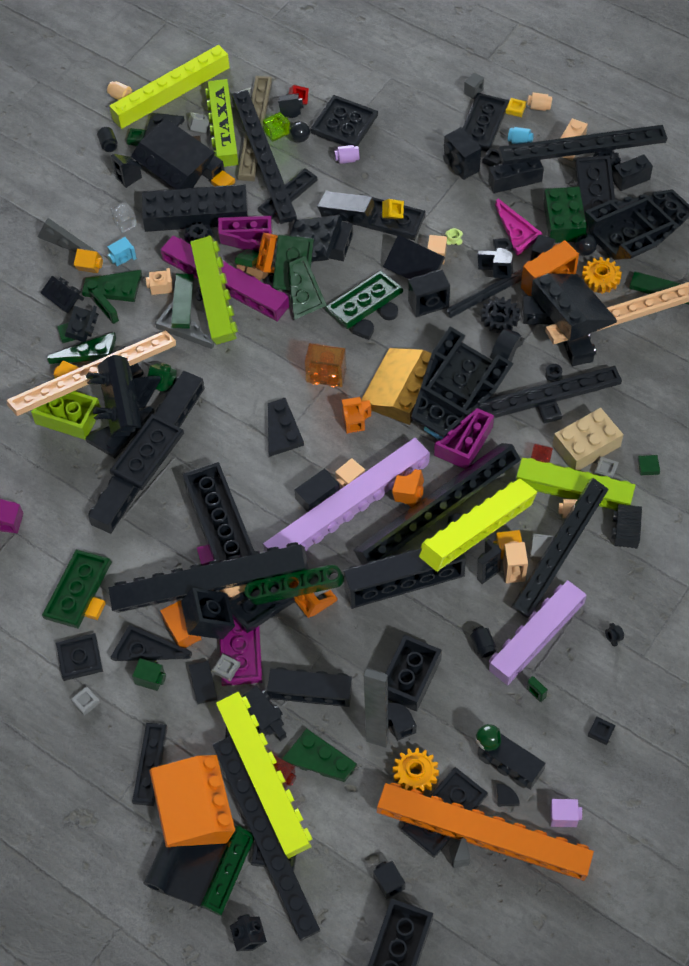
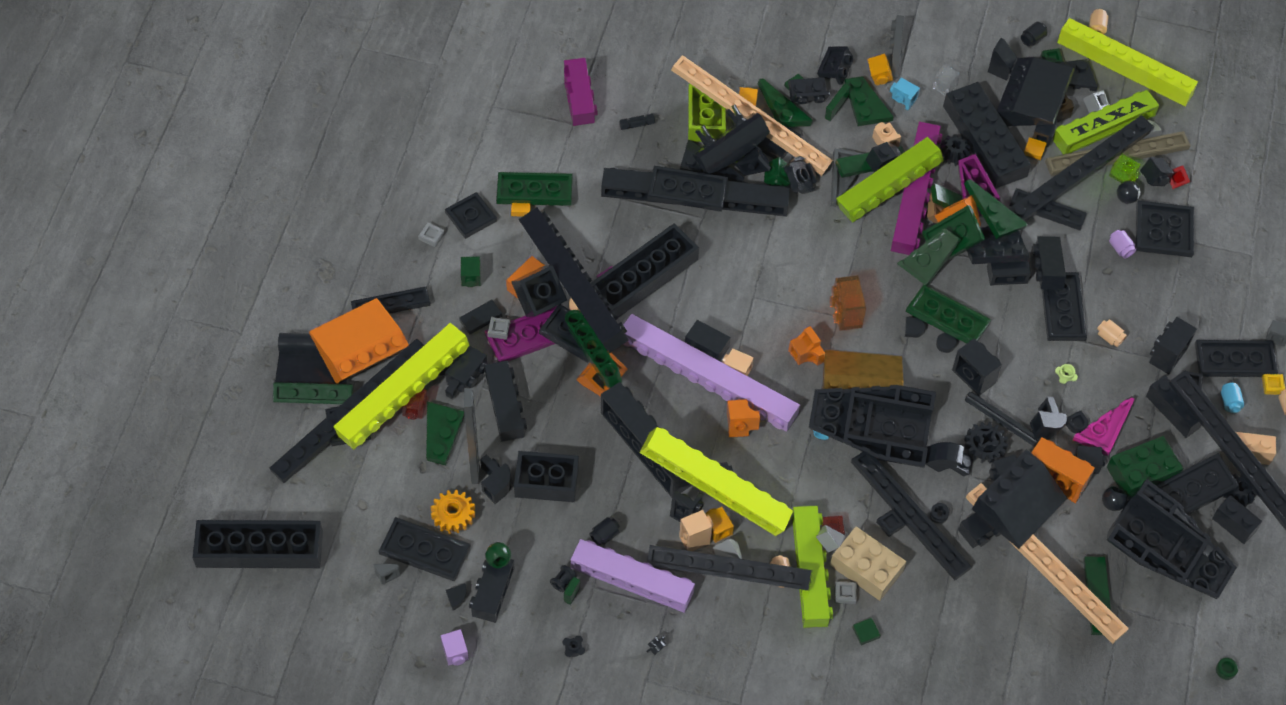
camera: 65 degrees right, 0 degrees up
(42, 475) = (637, 121): none -> black axle
(142, 645) = (497, 257): black wing -> none
(173, 356) = (800, 175): none -> black plate
(187, 288) = (882, 155): none -> black slope
(248, 933) = (260, 424): black brick -> none
(282, 428) = (769, 293): black wing -> none
(289, 223) = (998, 217): none -> dark green wing
(388, 879) = (343, 520): black brick -> none
(392, 209) = (1069, 305): yellow slope -> none
(412, 259) = (1013, 342): black tile -> none
(429, 192) = (1111, 333): none -> light nougat brick
(437, 504) = (736, 448): black brick -> none
(438, 244) = (1040, 361): light nougat brick -> none
(466, 440) = (819, 452): magenta wedge -> none
(485, 831) = (411, 584): orange brick -> none
(522, 700) = (562, 578): none -> black bush
(558, 457) = (830, 538): none -> light grey slope
(589, 710) = (573, 652): none -> black plate
(601, 275) = (1081, 515): light orange gear -> none
(601, 730) = (552, 661): black tile -> none
(628, 526) = (783, 626): black brick -> none

